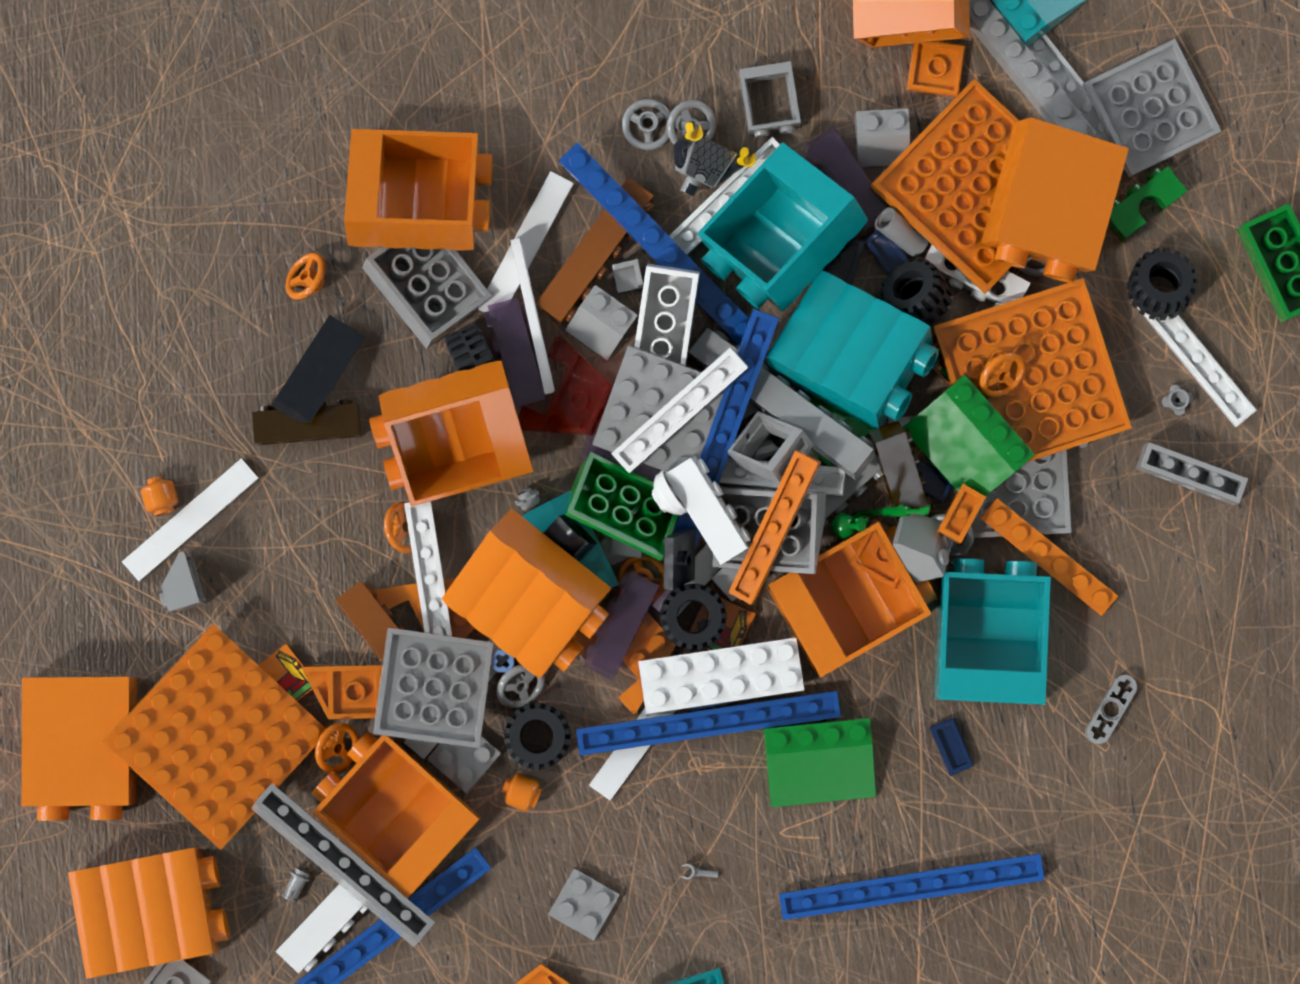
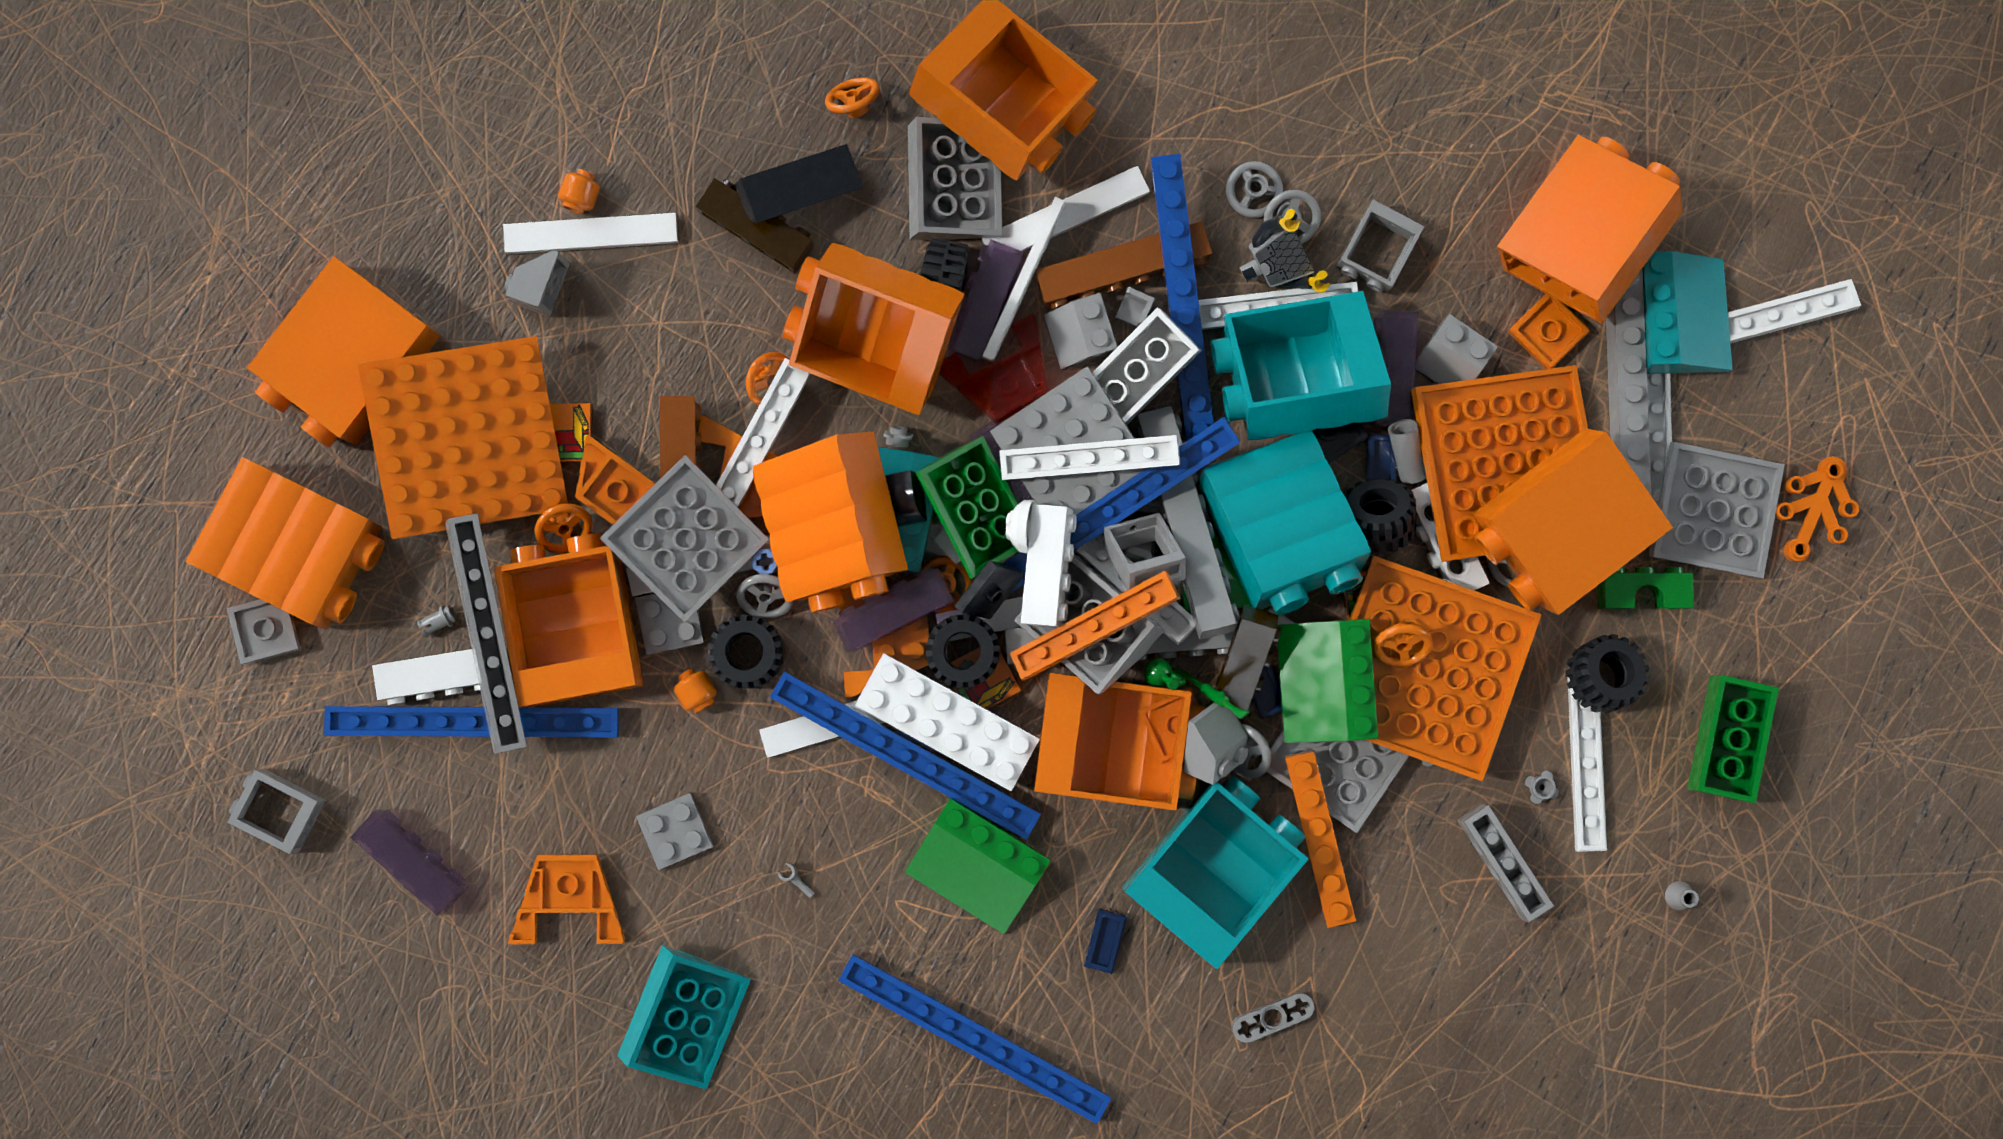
camera: 40 degrees right, 0 degrees up
(961, 513) = (1271, 741): orange plate -> none
(1220, 49) = (1818, 505): none -> orange plant

